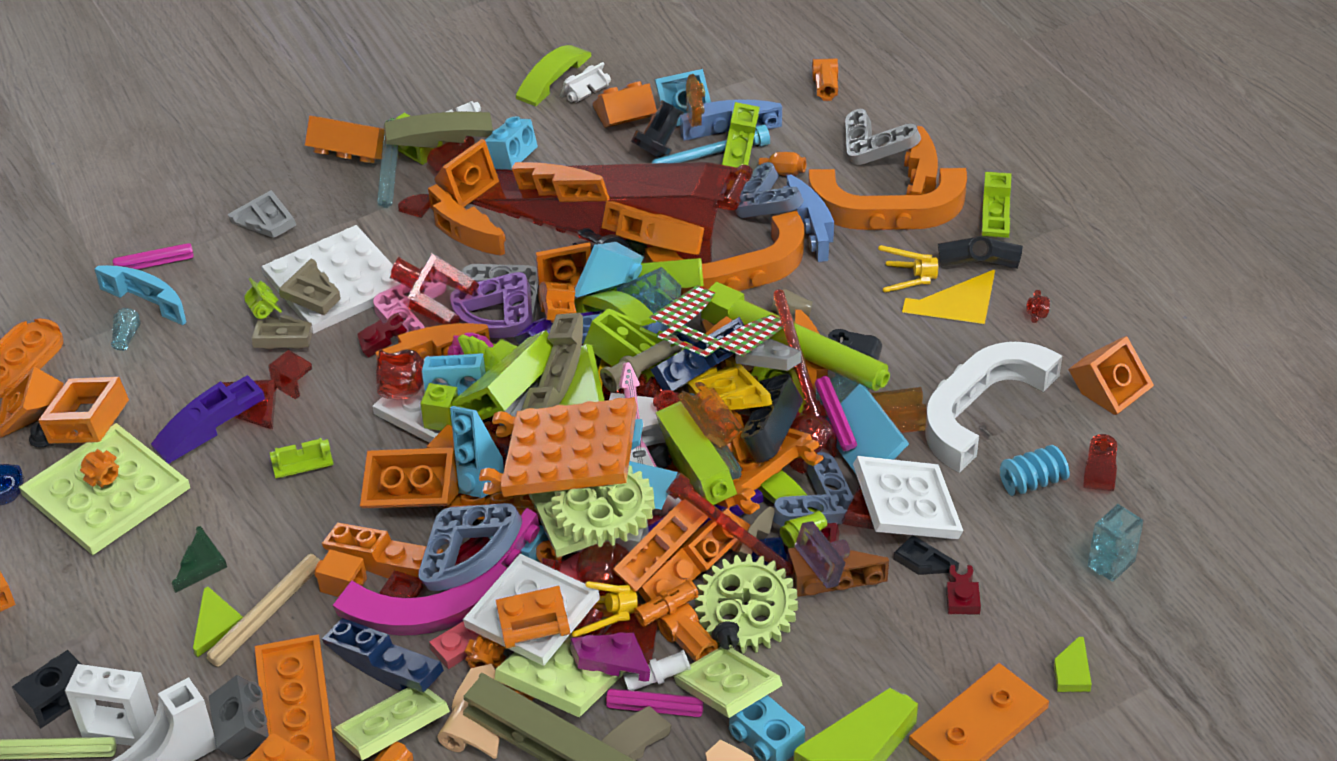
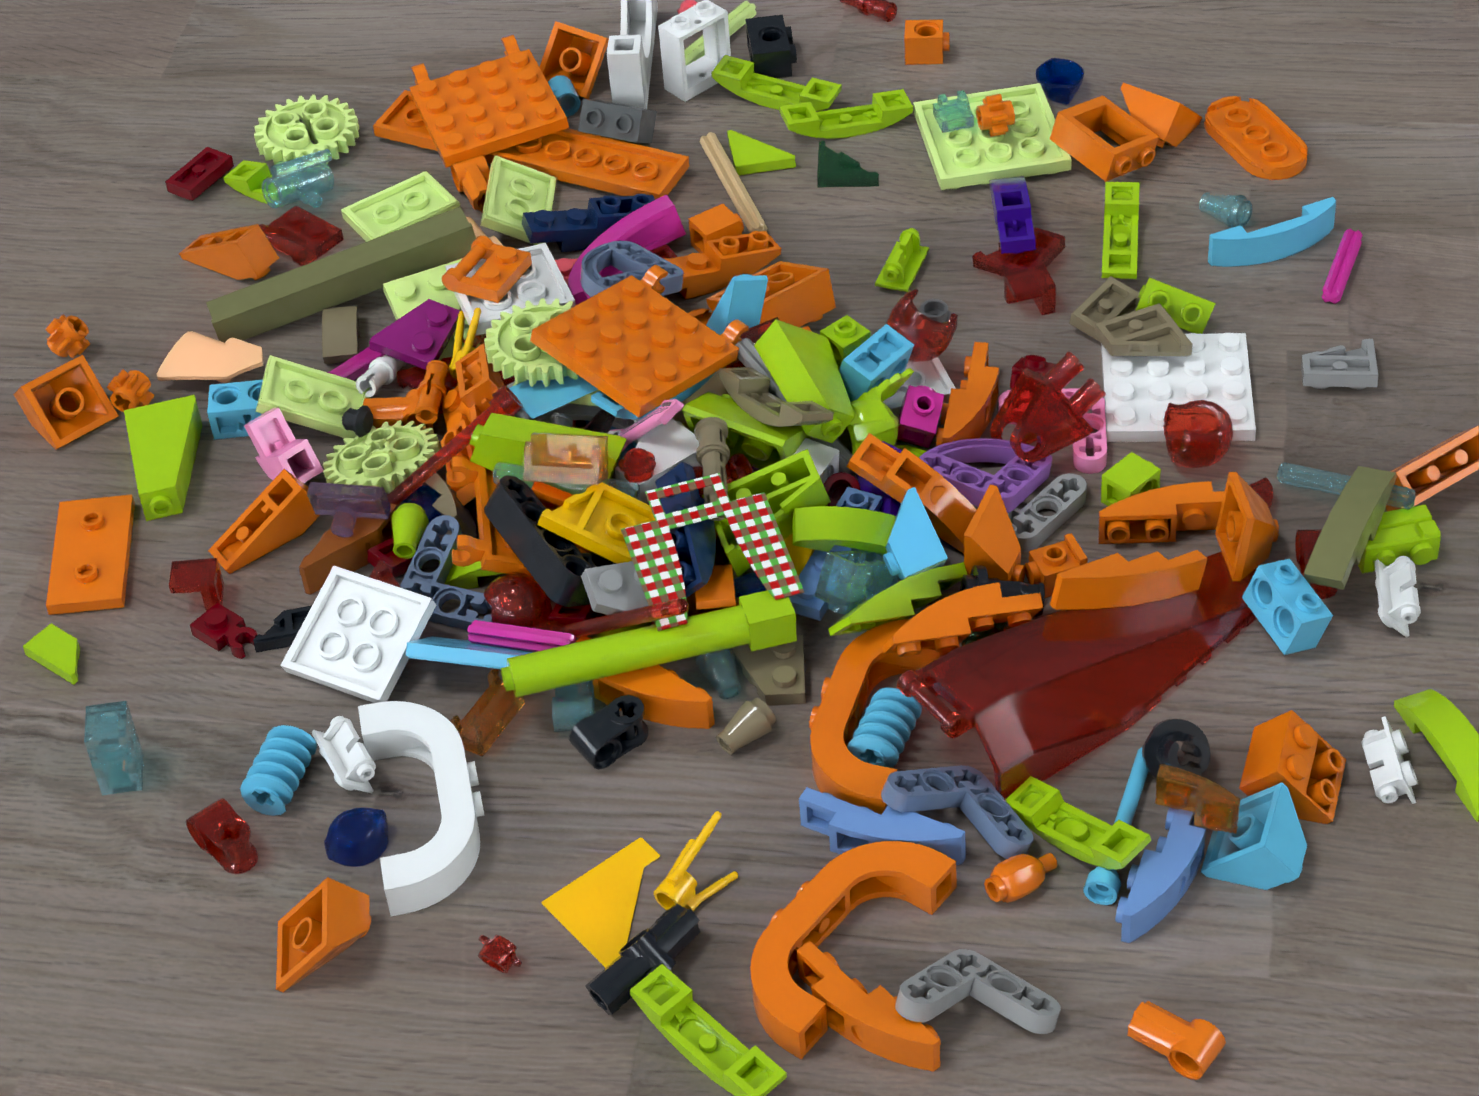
camera: 130 degrees right, 0 degrees up
(100, 505) = (954, 113): none -> clear light blue tile
(113, 633) = (739, 78): none -> lime slope
(125, 585) = (847, 122): none -> lime slope
(195, 367) = (1120, 230): none -> lime slope
(348, 413) = (935, 310): none -> flat silver plate
(392, 230) = (1197, 433): none -> clear red piece
(453, 247) = (1128, 478): none -> lime brick
(545, 239) = (1053, 559): none -> orange brick
(740, 242) = (885, 727): none -> medium azure piece
(794, 660) = (280, 449): none -> bright pink brick
(859, 625) = (269, 522): none -> orange slope
(946, 621) = (198, 576): none -> clear red panel
(992, 449) = (346, 755): none -> white hinge
(1032, 417) = (357, 837): none -> clear blue hat

